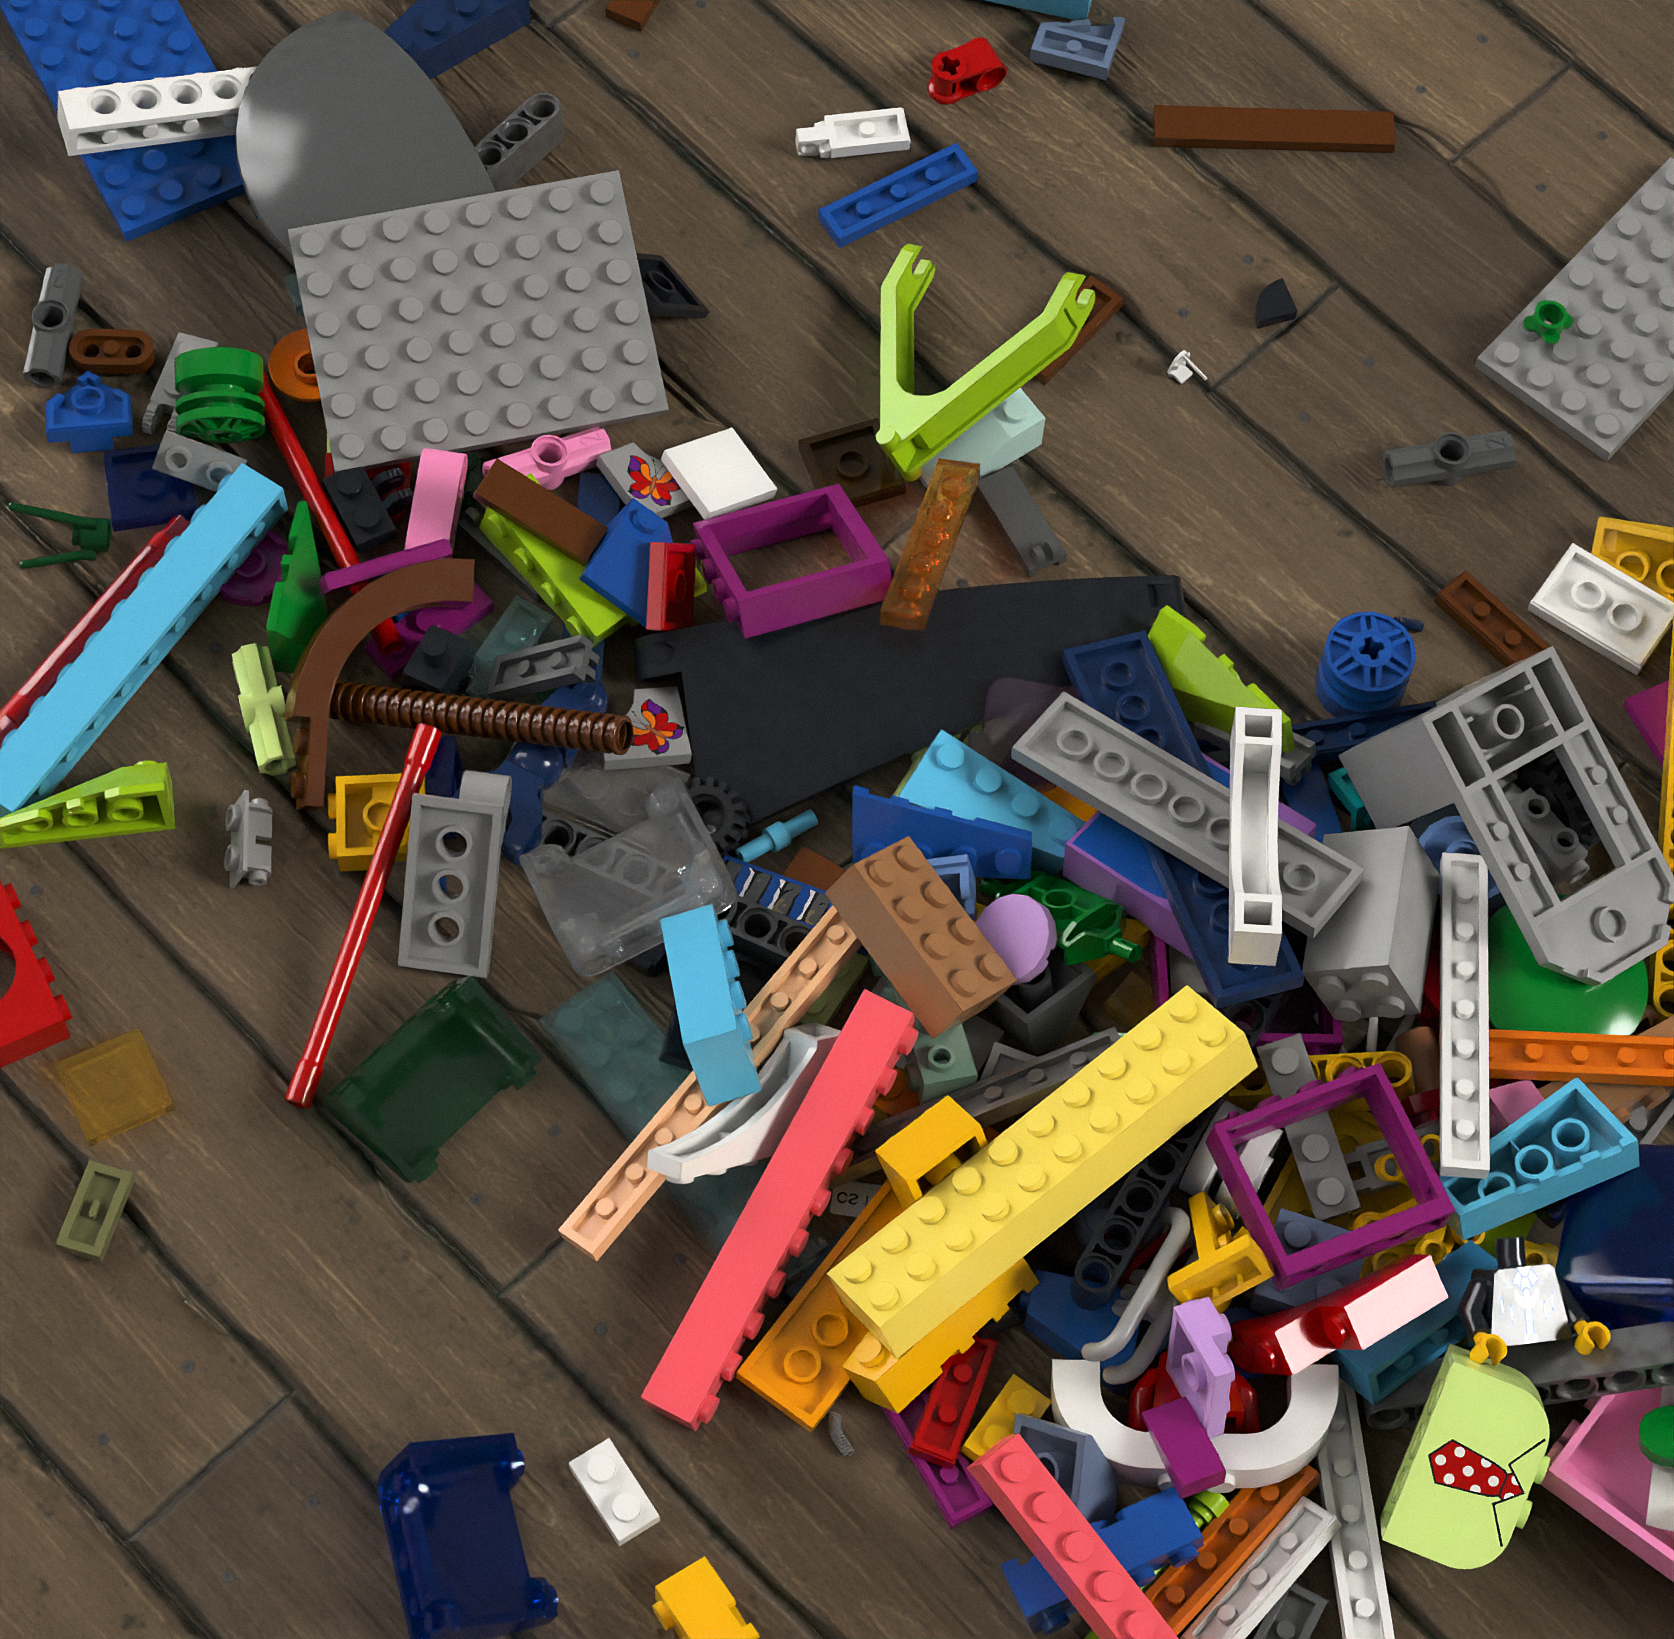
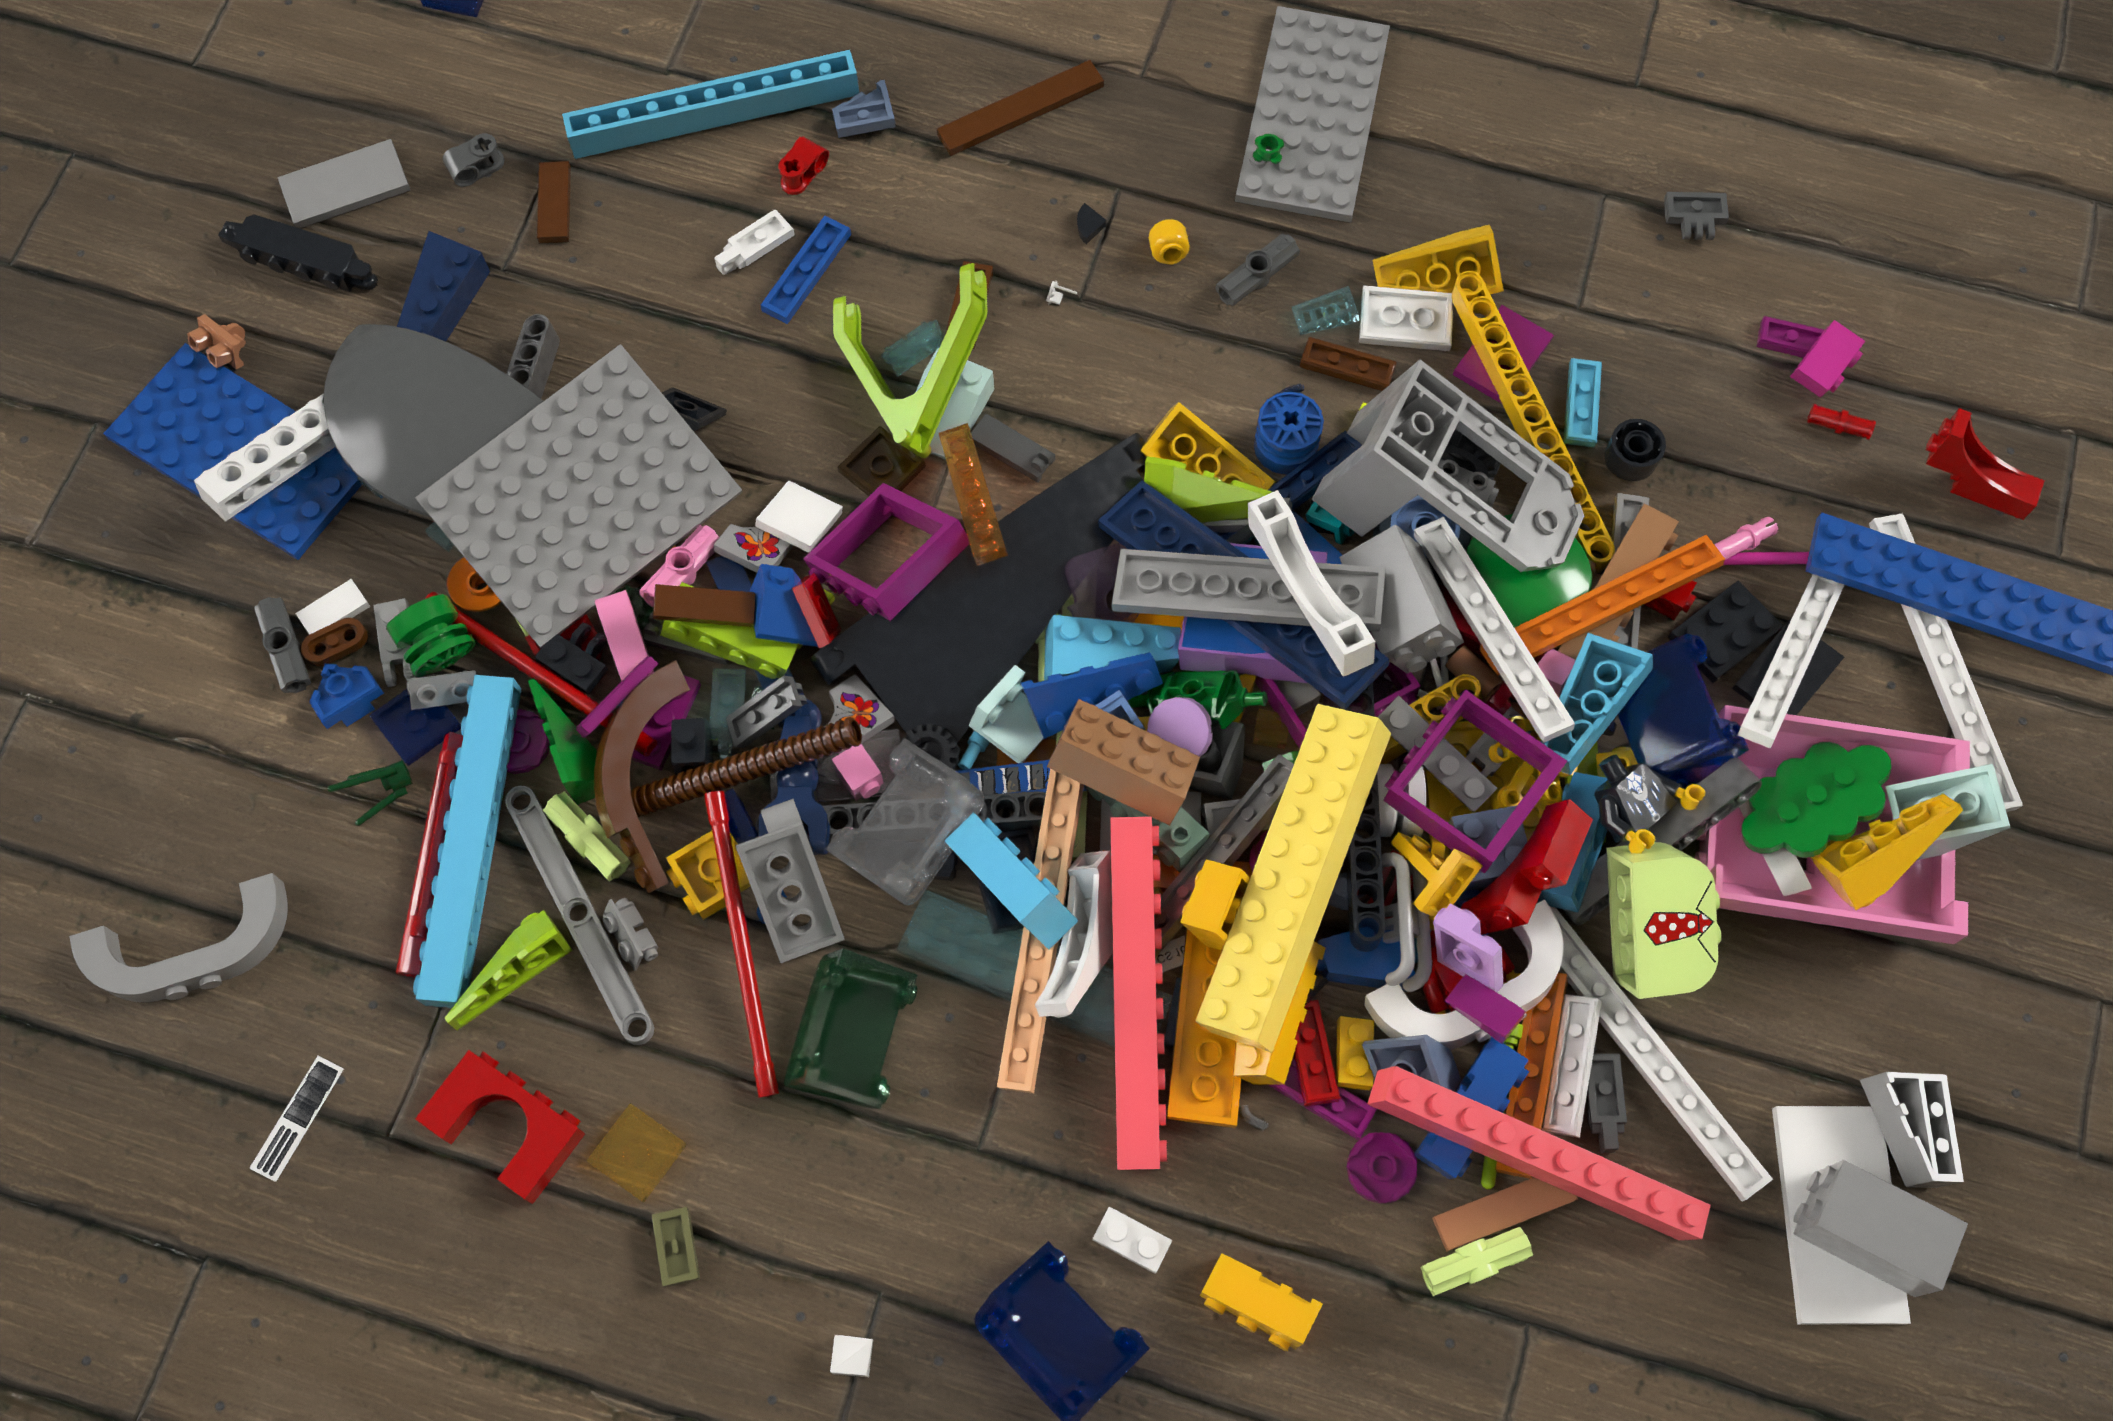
camera: 25 degrees left, 5 degrees up
(143, 312) = (338, 604): none -> white tile
(204, 818) = (588, 933): none -> light grey beam
(217, 1438) = (851, 1356): none -> white slope
(611, 795) = (858, 772): none -> bright pink brick
(819, 824) = (1007, 718): none -> light aqua bracket
(958, 1574) = (1382, 1167): none -> magenta tile
(966, 349) = (919, 345): none -> clear light blue hinge
(1240, 626) = (1191, 441): none -> yellow wedge
(1358, 373) = (1169, 241): none -> yellow head
(1504, 564) = (1337, 319): none -> clear light blue slope

